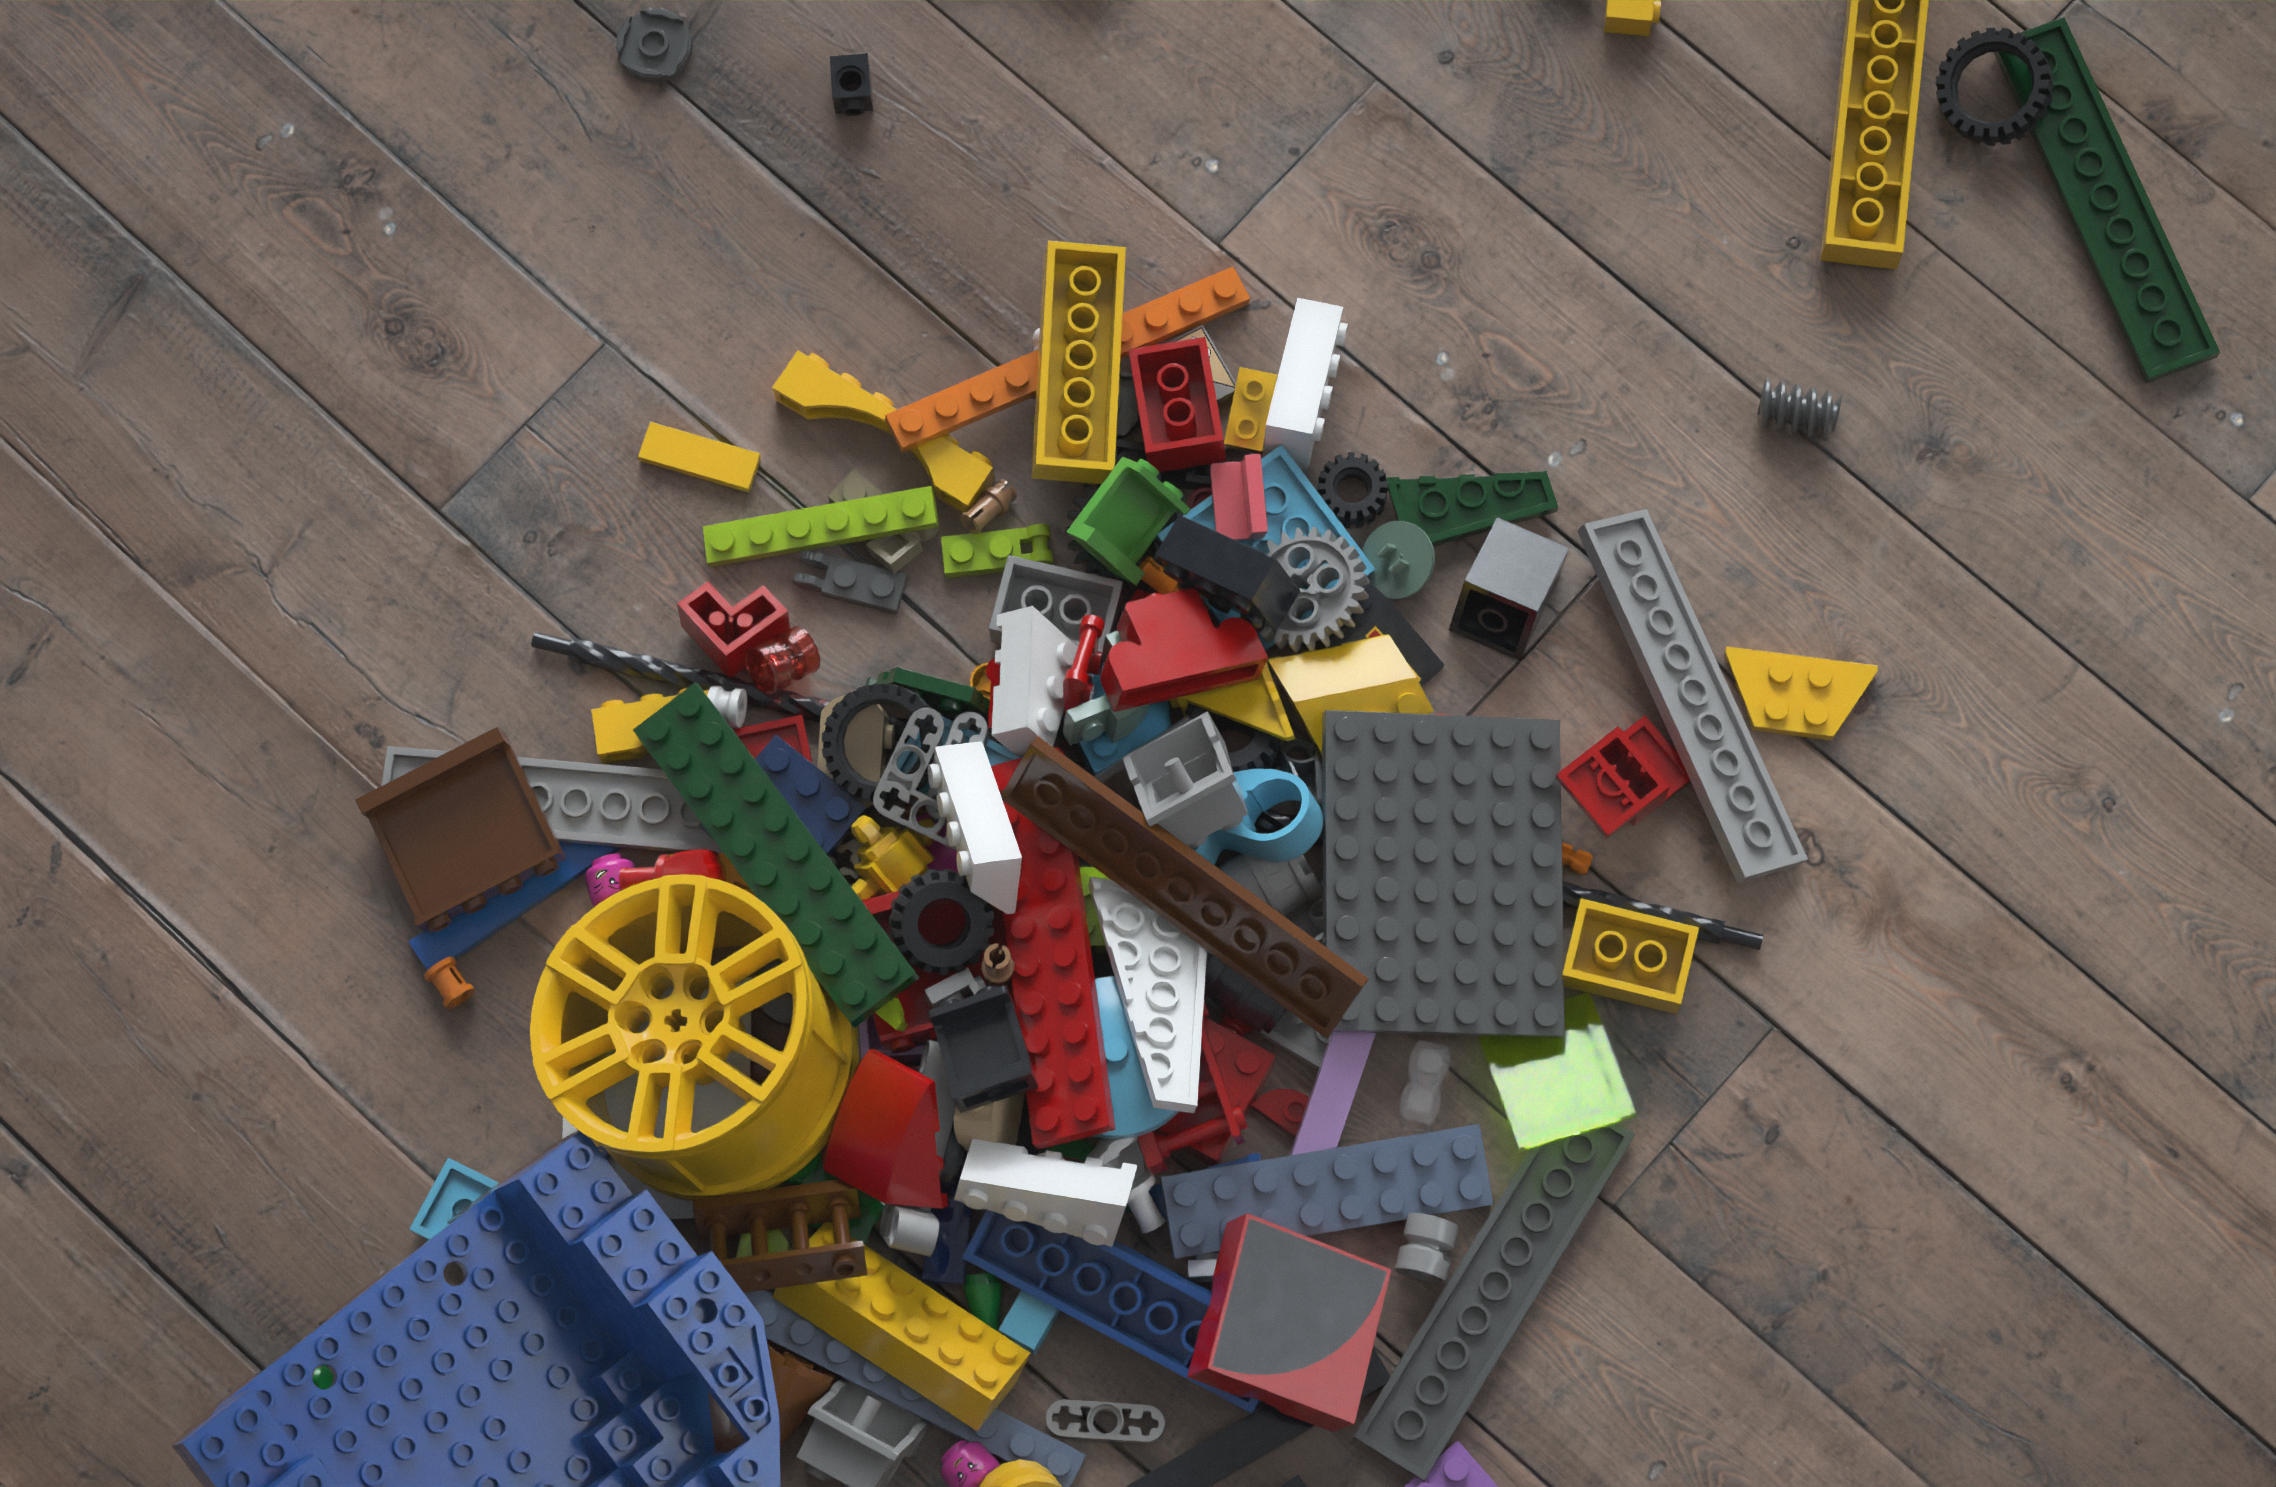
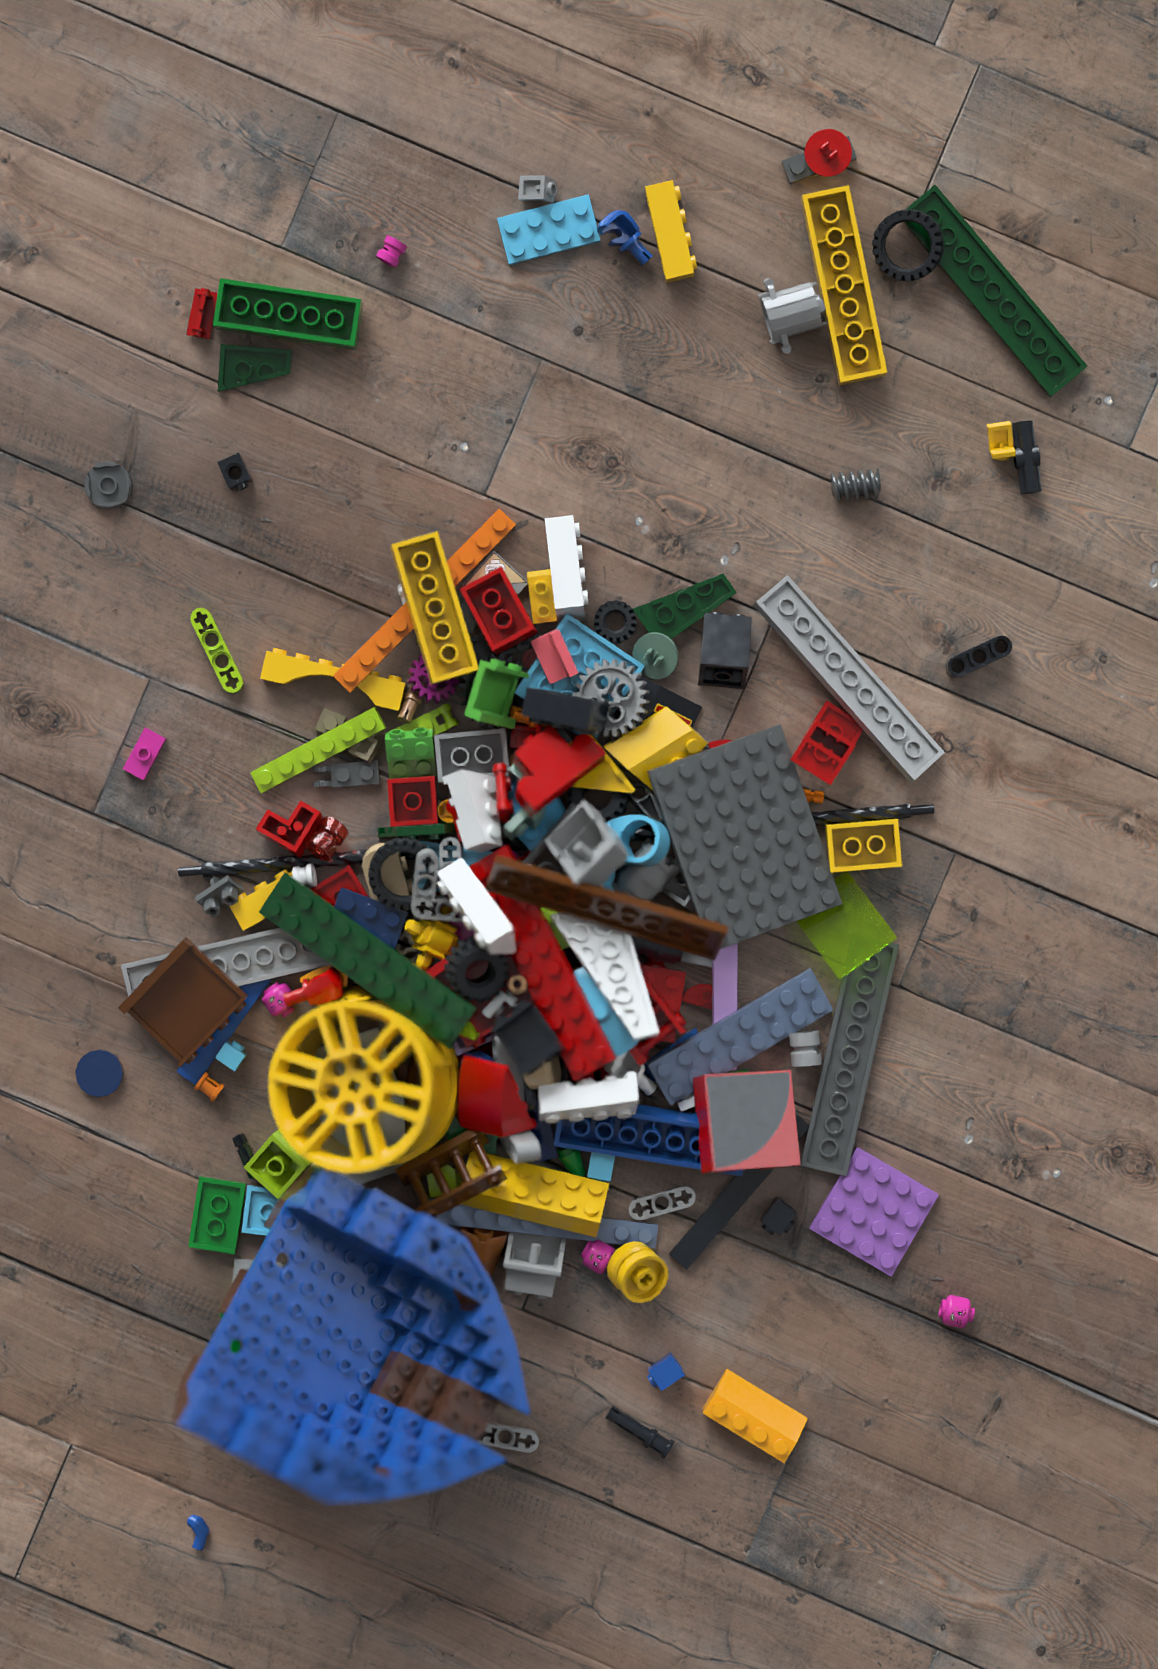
camera: 25 degrees left, 15 degrees up
(287, 904) = (99, 1073): none -> dark blue tile
(382, 1190) = (217, 1215): none -> green plate
(465, 1113) = (243, 1150): none -> black axle
(505, 944) = (231, 1054): none -> medium azure plate
(508, 1132) = (277, 1165): none -> lime slope
(552, 447) = (144, 753): none -> dark pink plate
(582, 689) = (221, 892): none -> dark grey hips
(699, 457) = (232, 730): yellow tile -> none
(721, 333) = (215, 651): none -> lime beam
(940, 641) = (413, 801): none -> red brick
(961, 577) = (410, 753): none -> bright green plate
(1032, 493) = (420, 675): none -> magenta gear
(1425, 1080) = (773, 950): clear brick -> none
(1781, 123) = (790, 311): none -> light grey container
(1797, 692) = (907, 654): yellow wing -> none
(1925, 718) = (989, 652): none -> black beam
(2048, 417) = (1000, 440): none -> yellow bracket
(2081, 456) = (1027, 457): none -> black piece

